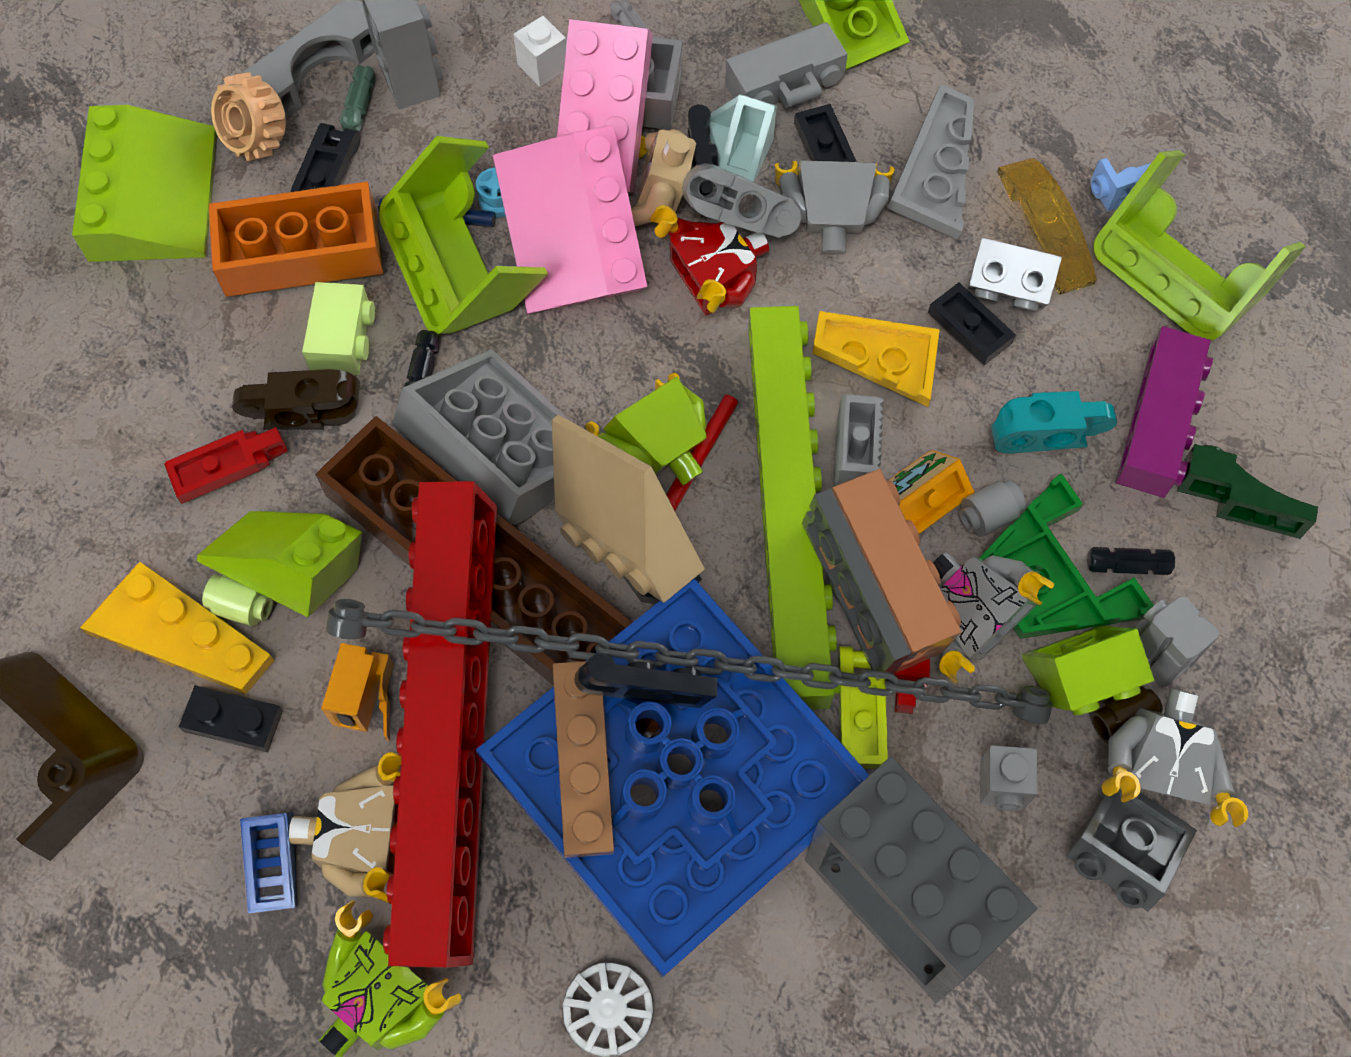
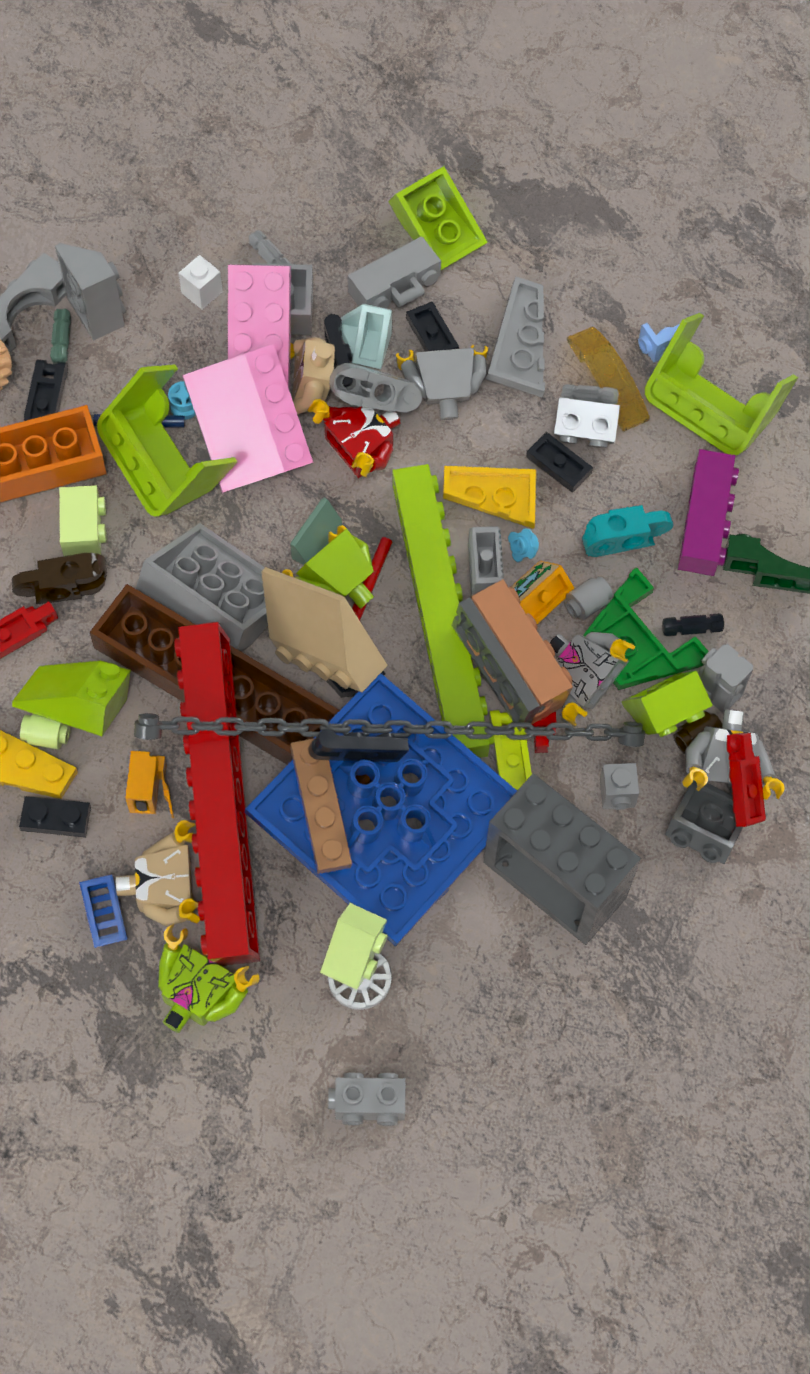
camera: 10 degrees left, 0 degrees up
(423, 357) = (149, 537): black axle -> none
(601, 971) = (354, 945): none -> yellowish green brick
(638, 376) = (314, 532): none -> sand green slope
(911, 425) = (523, 544): none -> medium azure plate
(1028, 239) = (590, 393): none -> light grey axle
(1193, 796) = (745, 780): none -> red hinge

